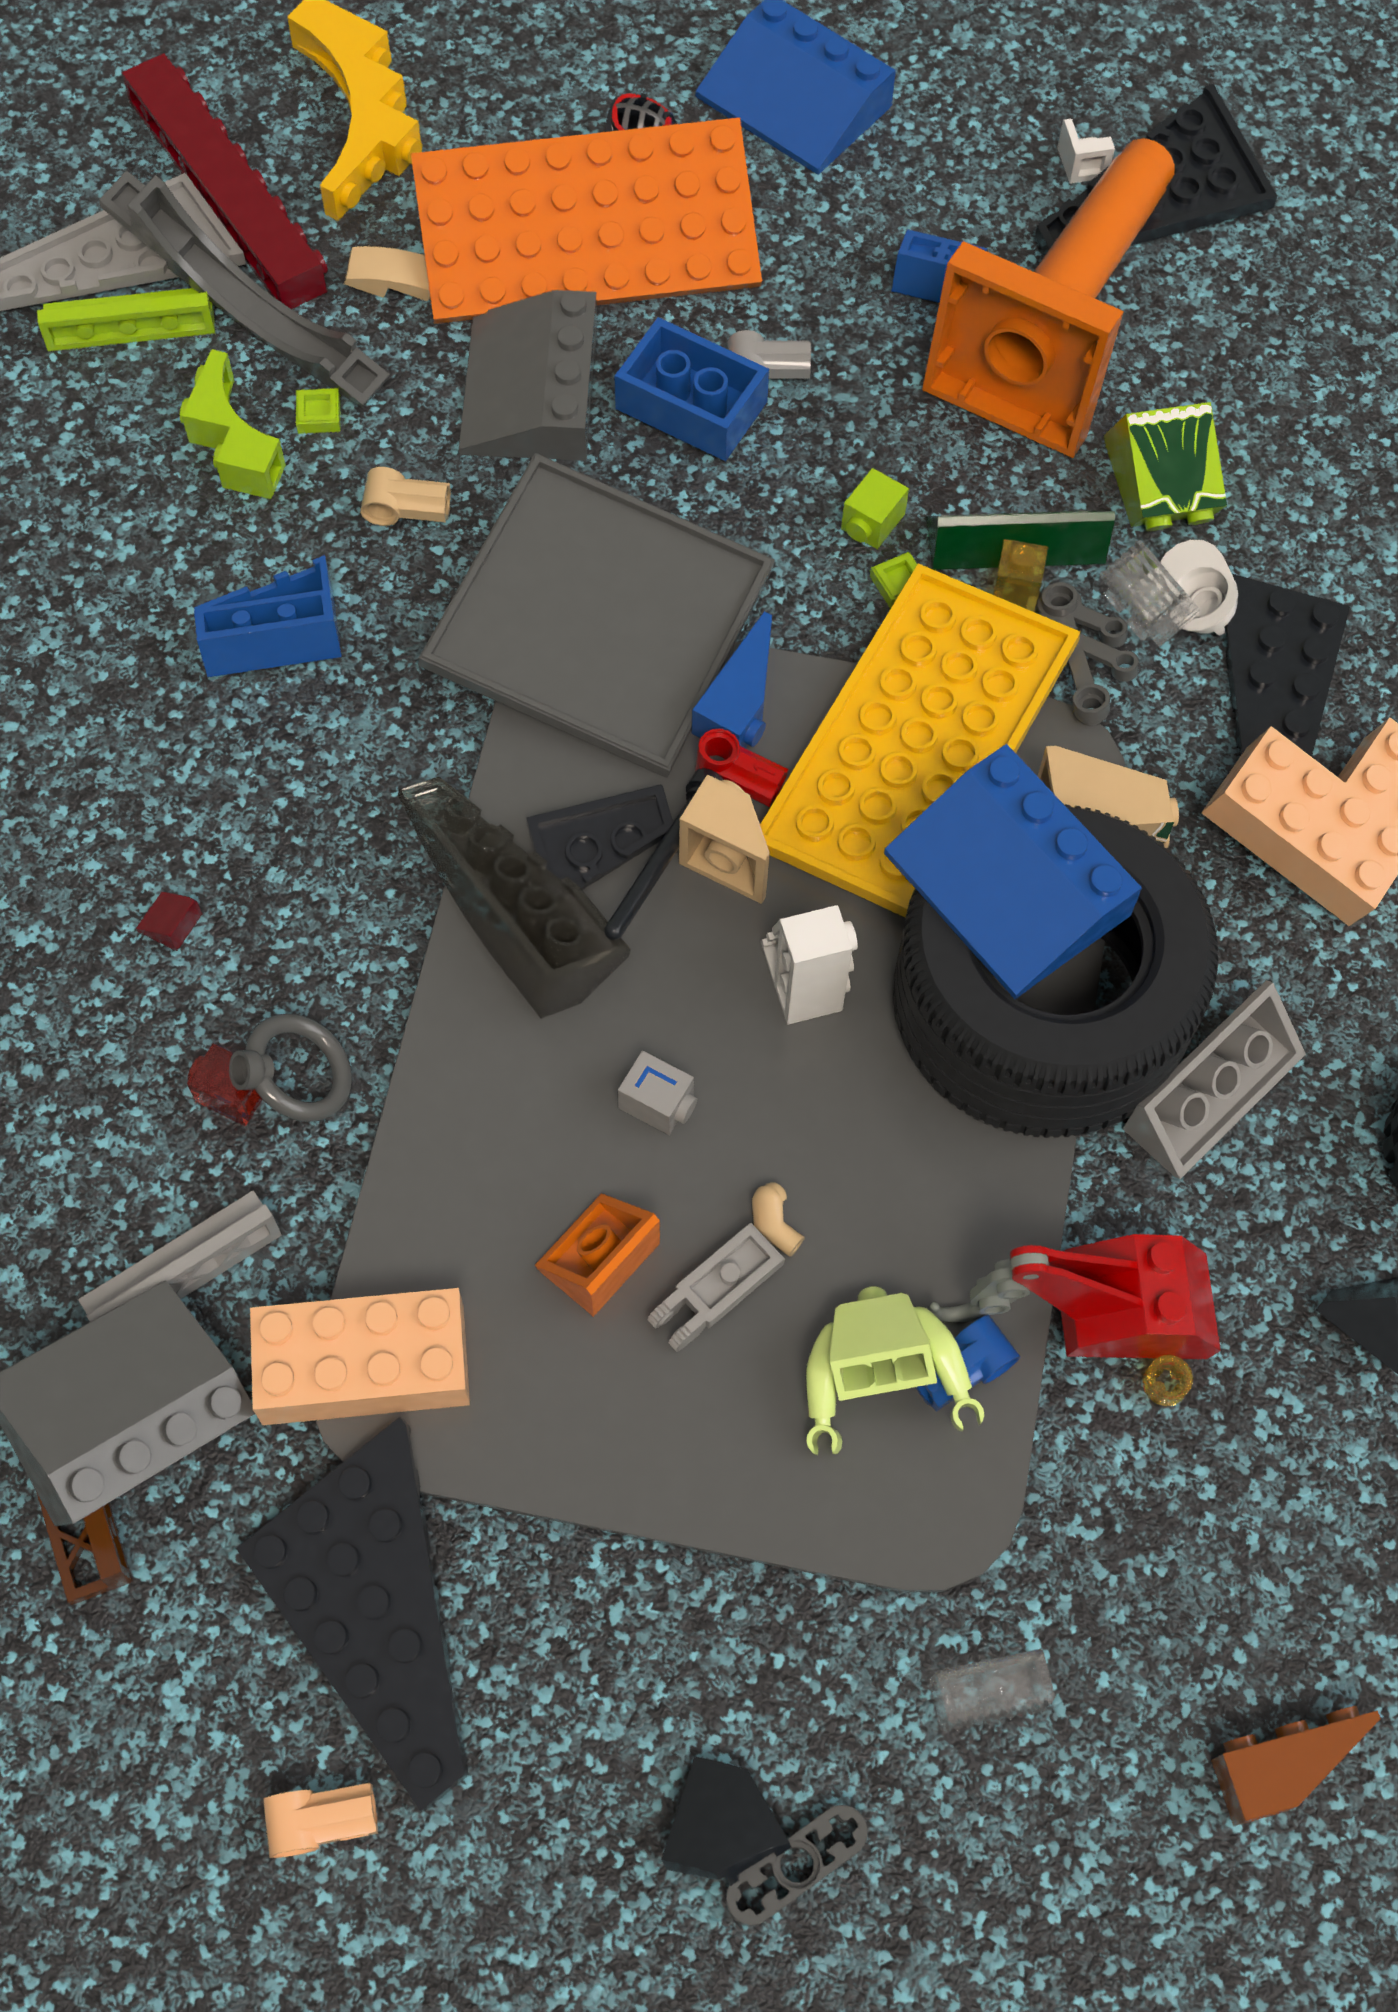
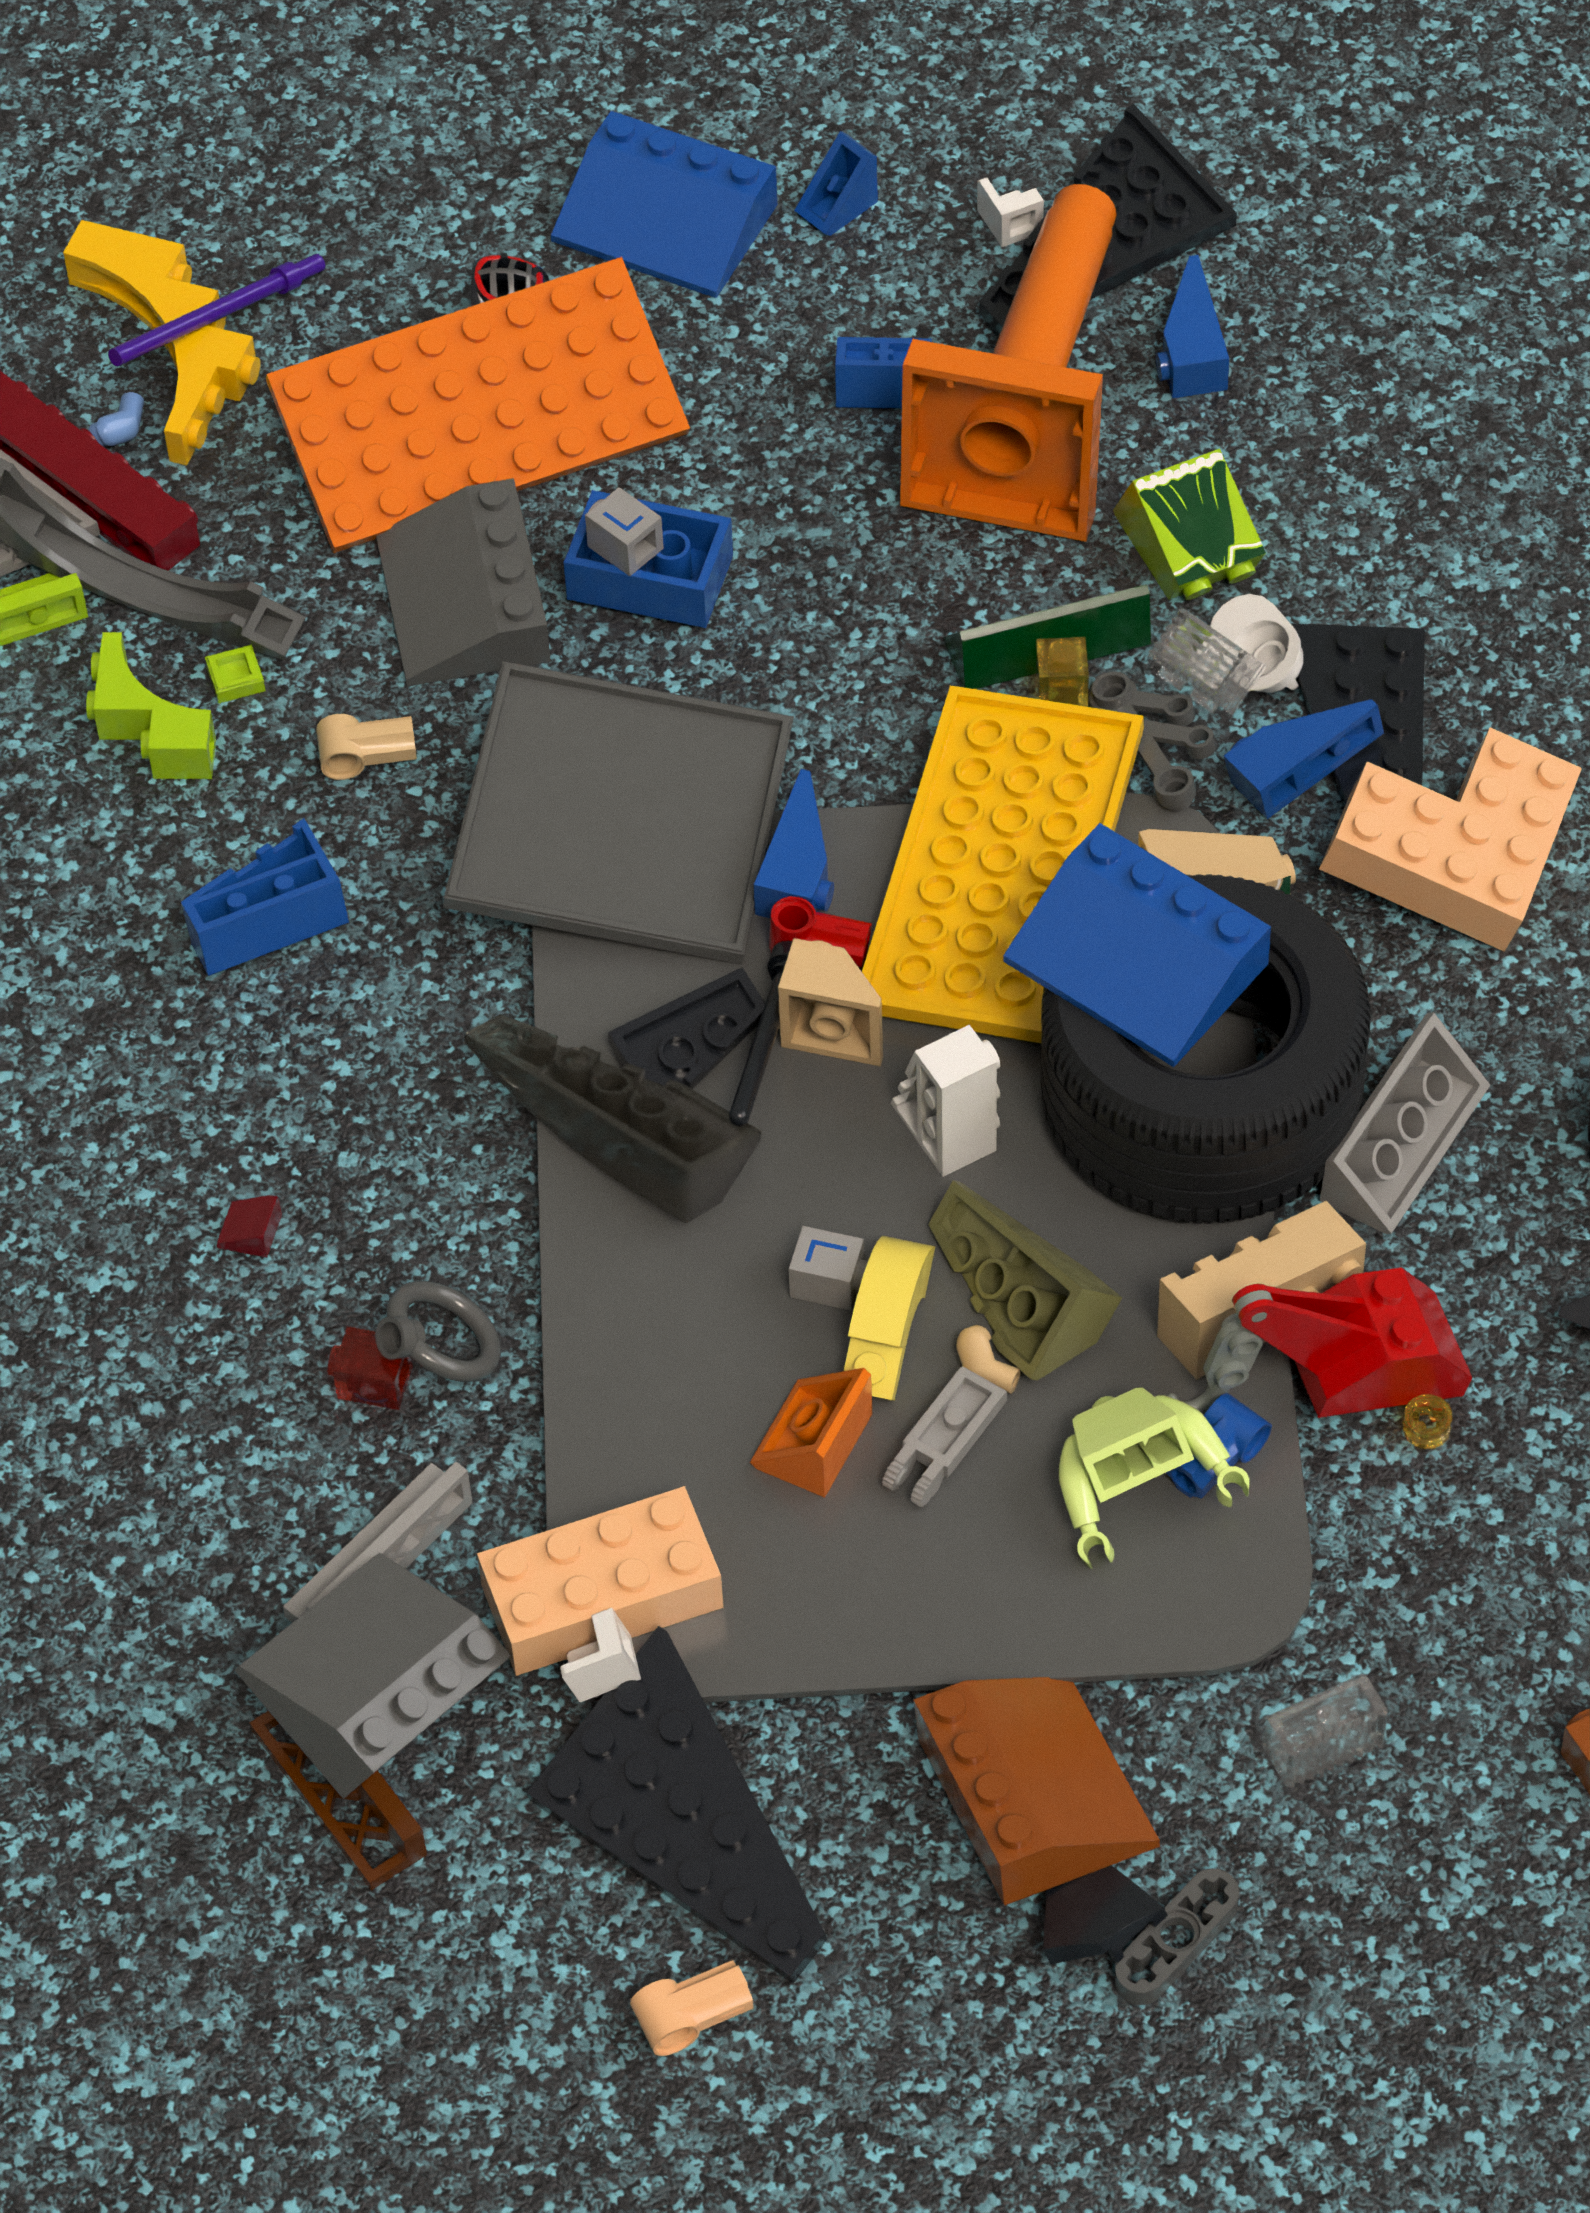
camera: 10 degrees left, 10 degrees down
(291, 175) = (121, 425): none -> medium blue arm
(337, 1440) = (603, 1663): none -> white panel
(384, 268) = (258, 505): tan slope -> none
(462, 79) = (280, 279): none -> dark purple bar
(671, 360) = (624, 531): none -> light grey brick
(695, 1150) = (885, 1309): none -> light yellow arch
(704, 1670) = (1031, 1781): none -> dark orange slope
(782, 358) = (743, 503): light grey piece -> none
(834, 1162) = (1029, 1291): none -> olive wedge
(874, 508) = (885, 641): lime brick -> none
(892, 576) = (925, 707): lime tile -> none
(947, 101) = (841, 187): none -> blue slope
(1046, 1211) = (1300, 1254): none -> tan wedge
(1208, 697) = (1297, 753): none -> blue slope
(1211, 301) = (1193, 344): none -> blue slope

